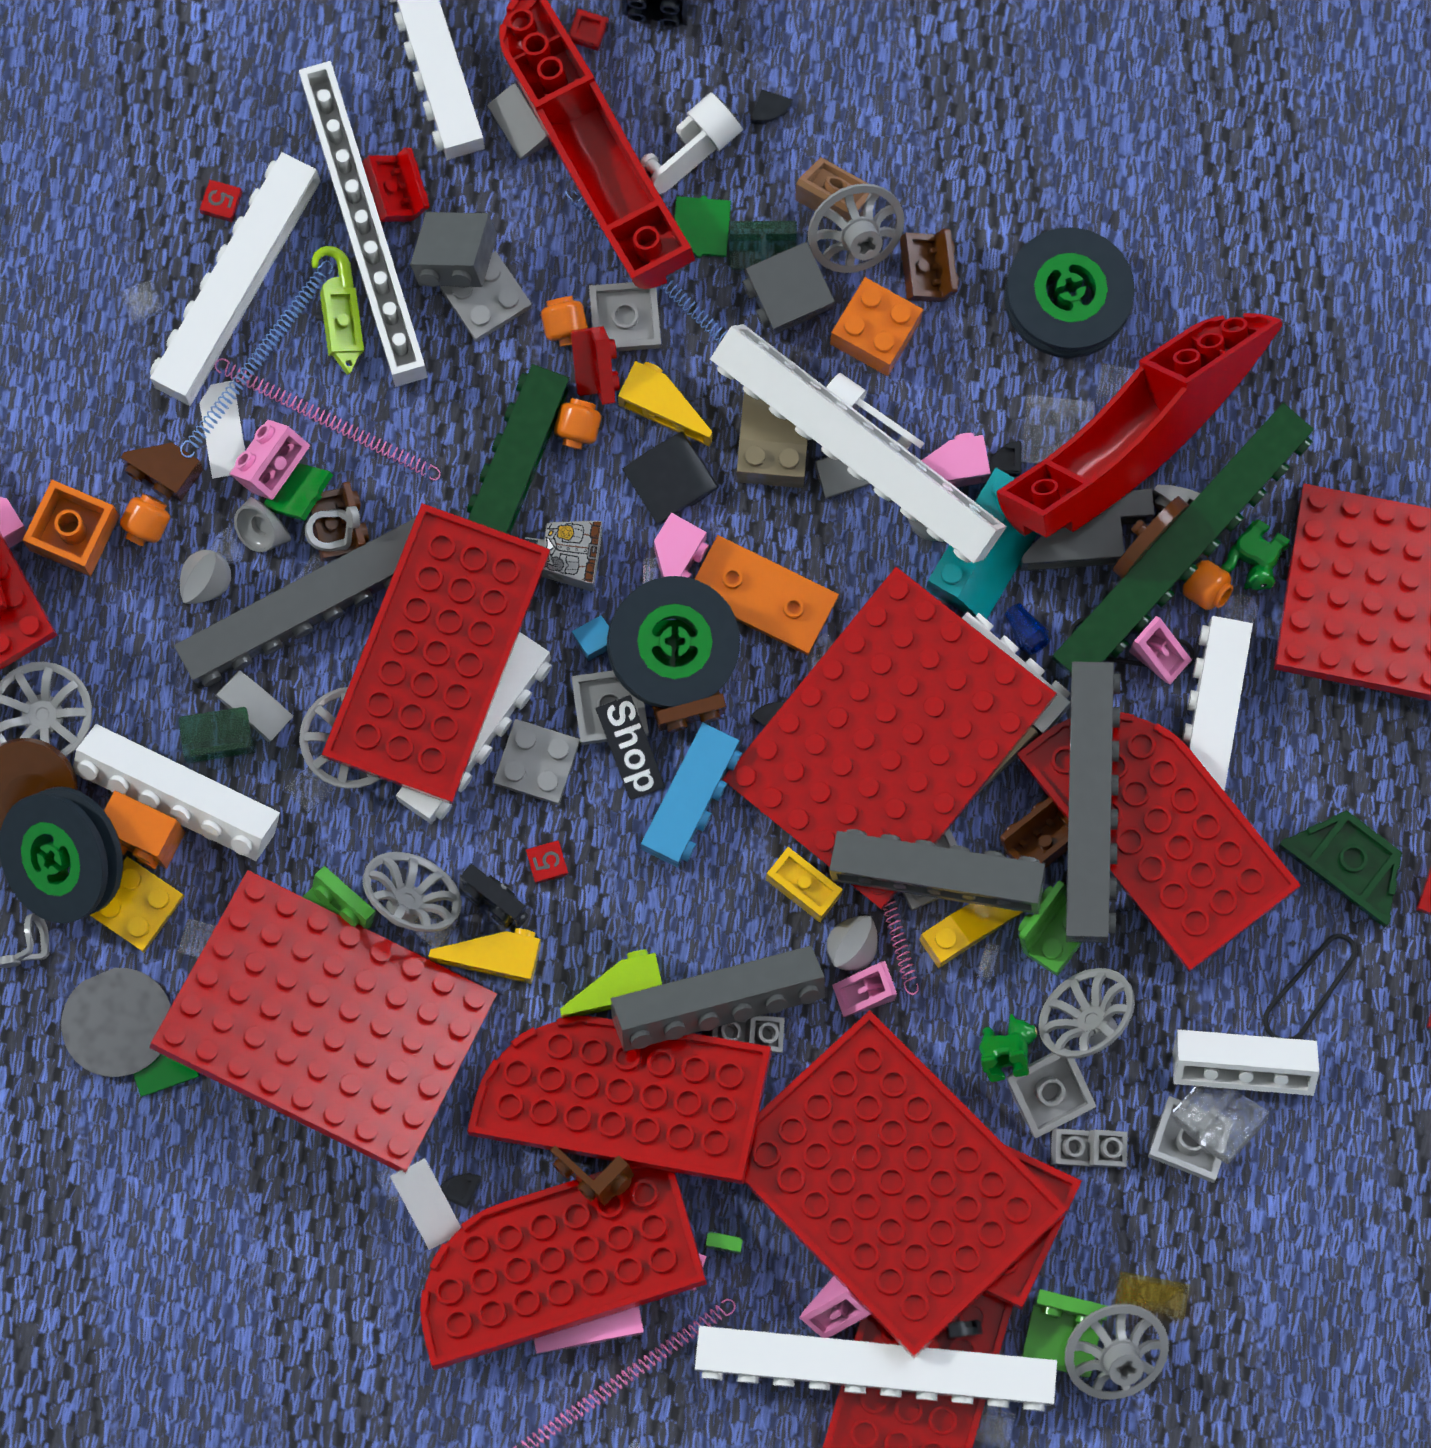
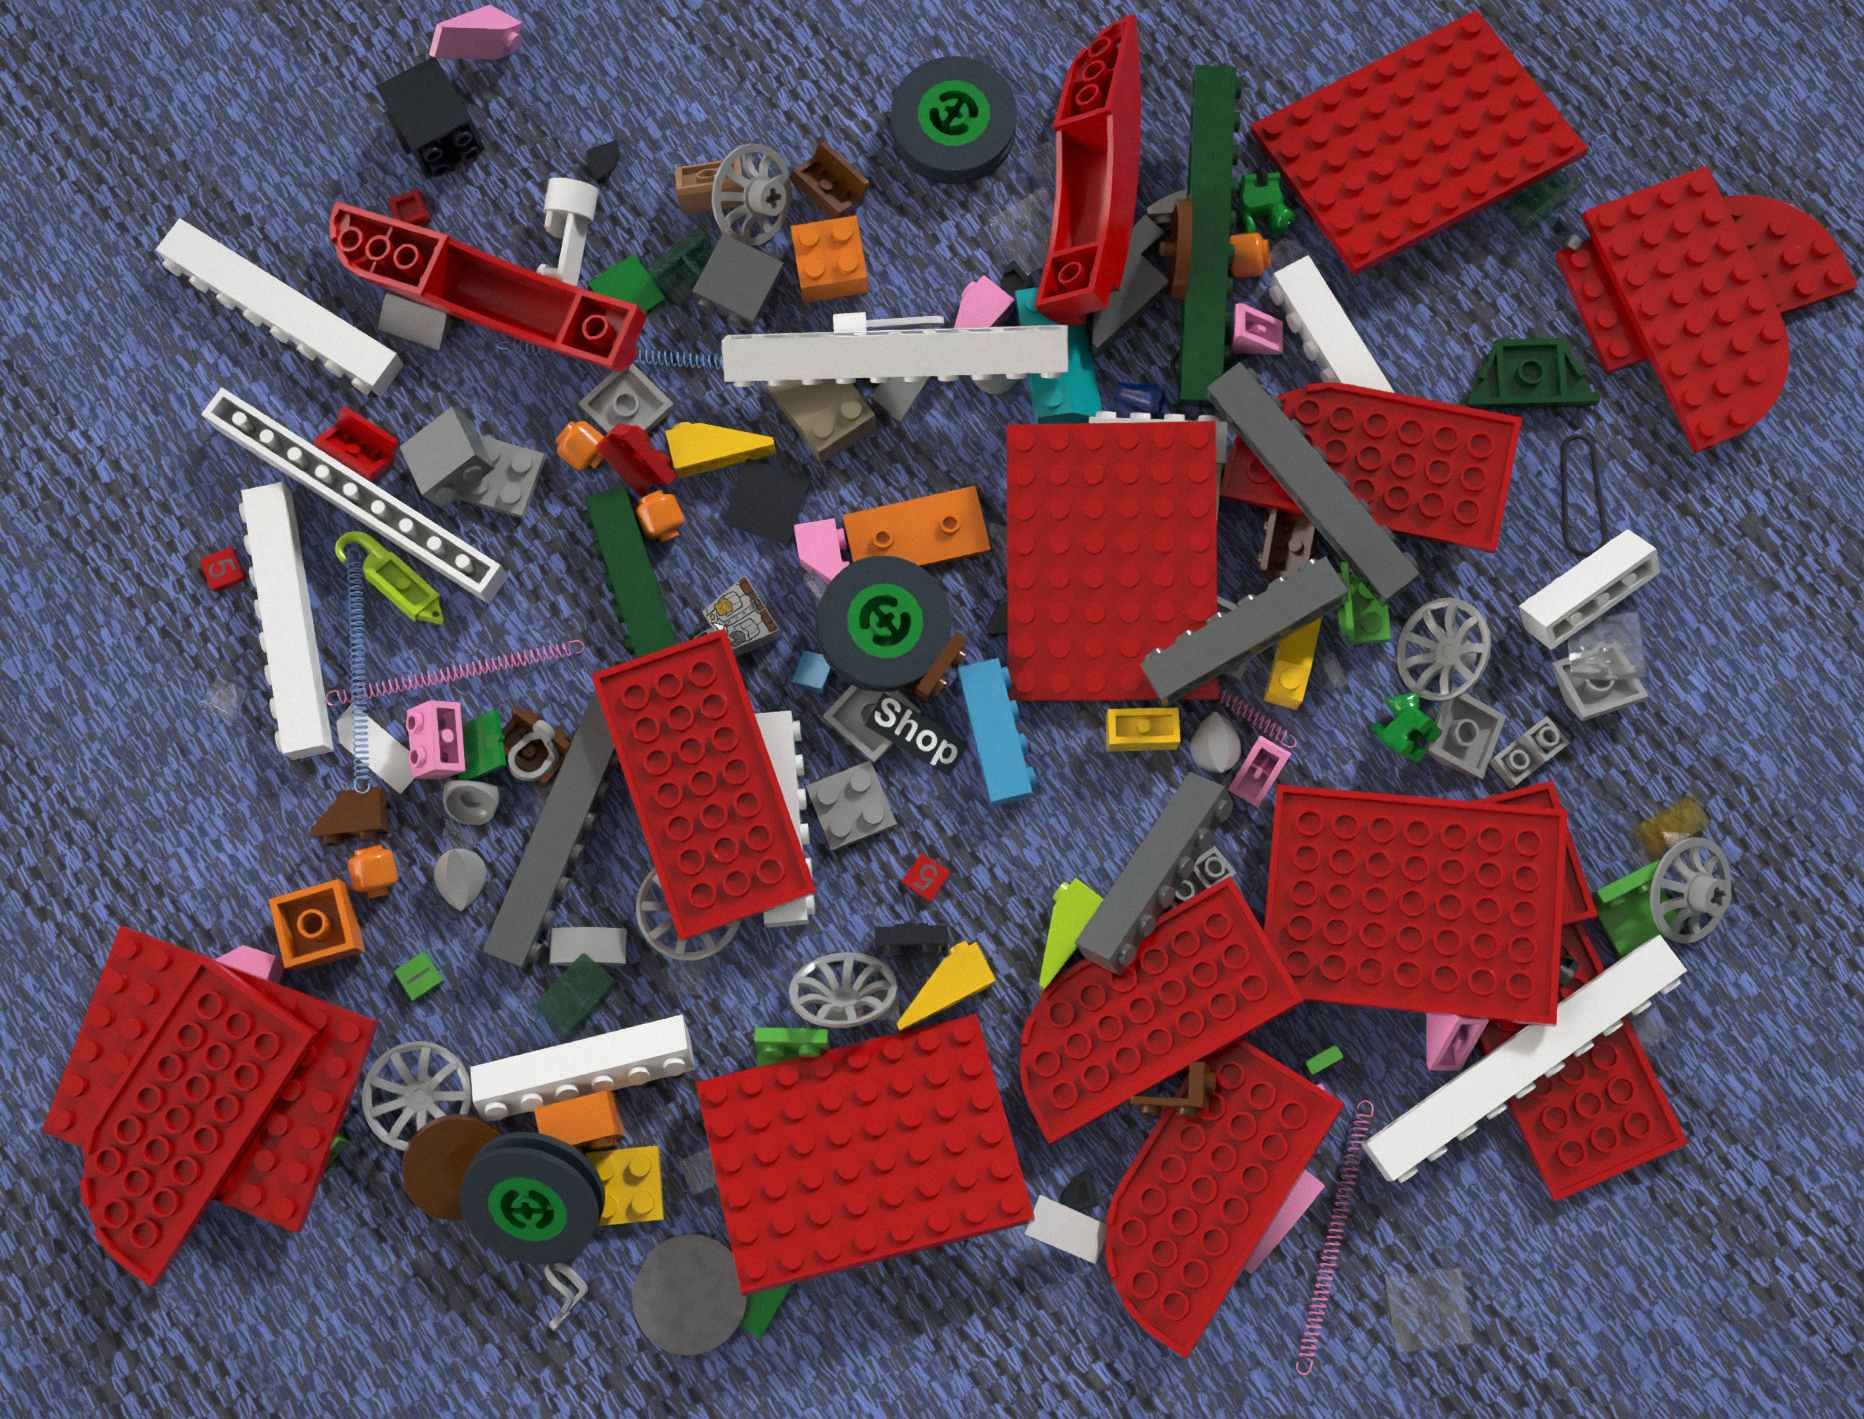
camera: 35 degrees left, 0 degrees up
(114, 626) = (419, 976): none -> bright green tile

